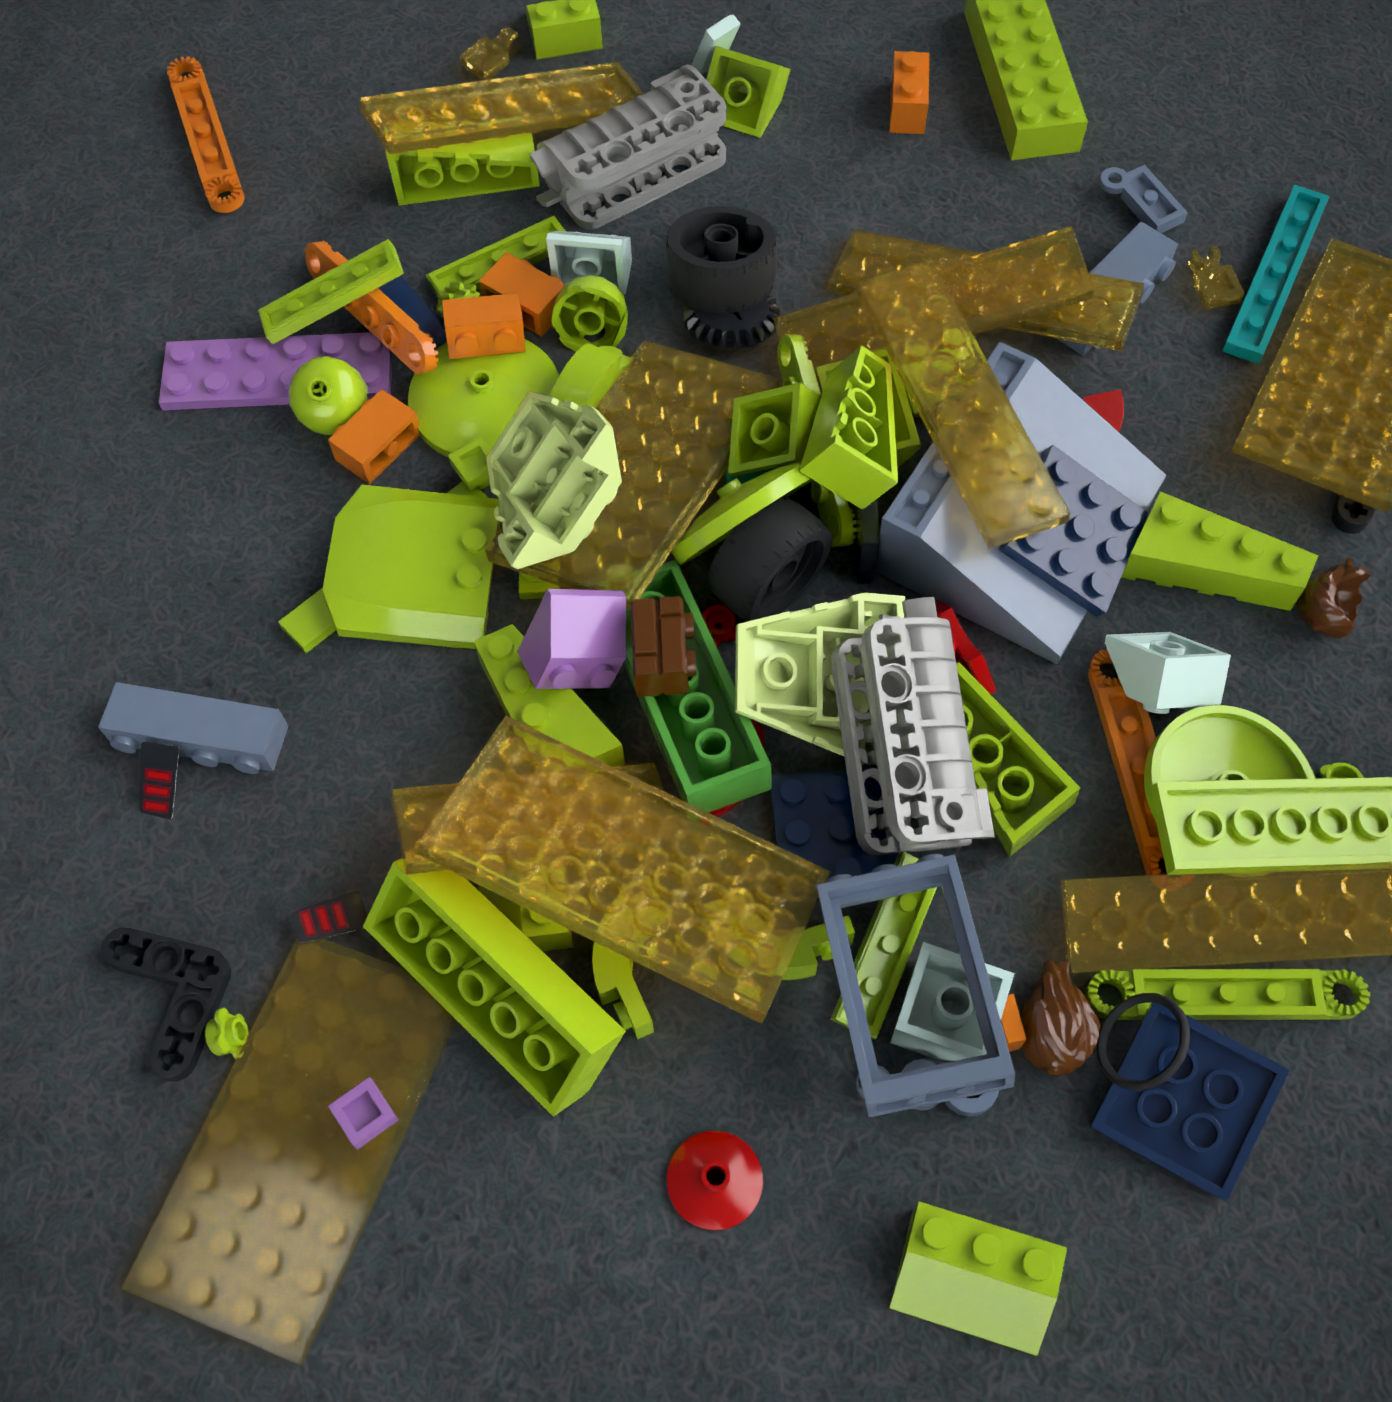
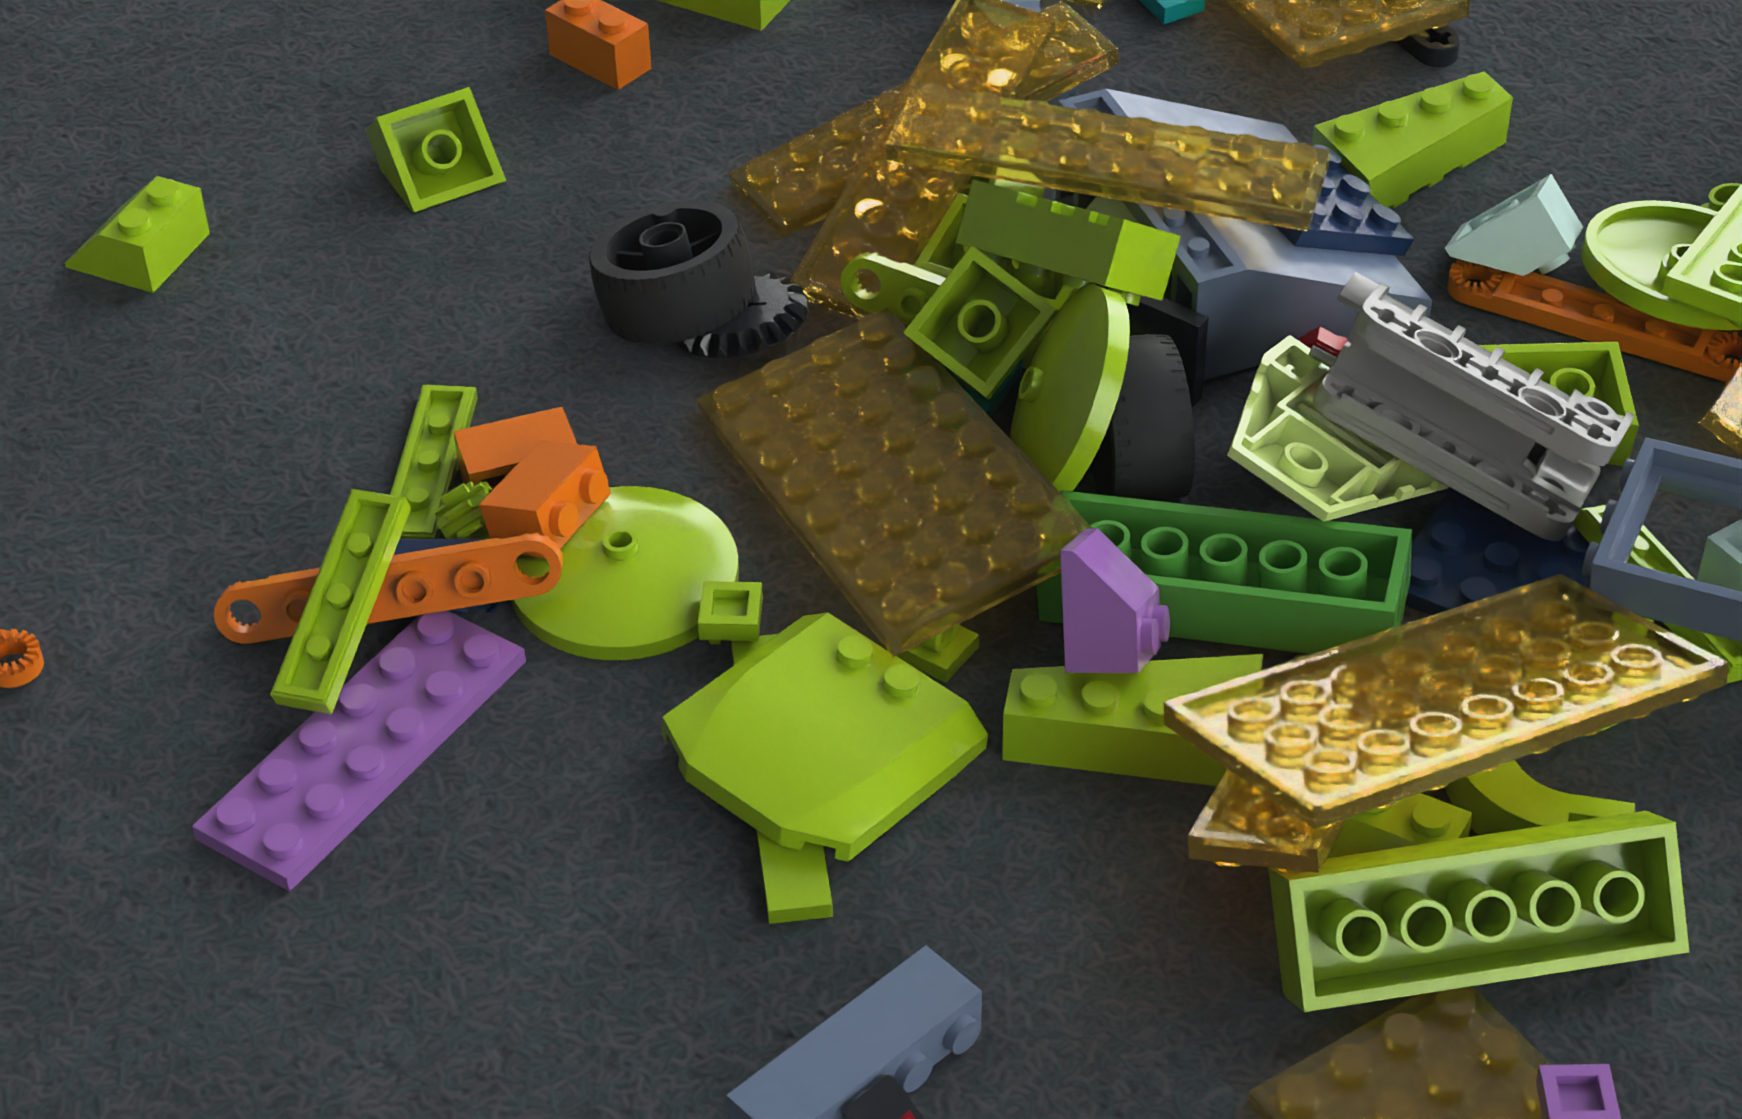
camera: 55 degrees left, 20 degrees down
(329, 918) = (1254, 1054): black sticker -> none
(338, 404) = (479, 695): lime cylinder -> none
(375, 436) = (583, 686): orange brick -> none
(464, 169) = (249, 416): lime wedge -> none
(490, 57) = (106, 321): clear yellow plate -> none
(496, 107) = (241, 323): clear yellow plate -> none
(551, 478) = (872, 496): yellowish green wedge -> none
(587, 307) = (620, 401): lime cylinder -> none
(589, 374) = (731, 473): lime arch -> none
(590, 254) = (543, 373): light aqua slope -> none
(634, 146) = (424, 261): light grey piece -> none
(660, 646) = (1188, 534): reddish brown brick -> none
(718, 35) = (357, 129): light aqua tile -> none
(1332, 599) = (1535, 105): reddish brown hair -> none

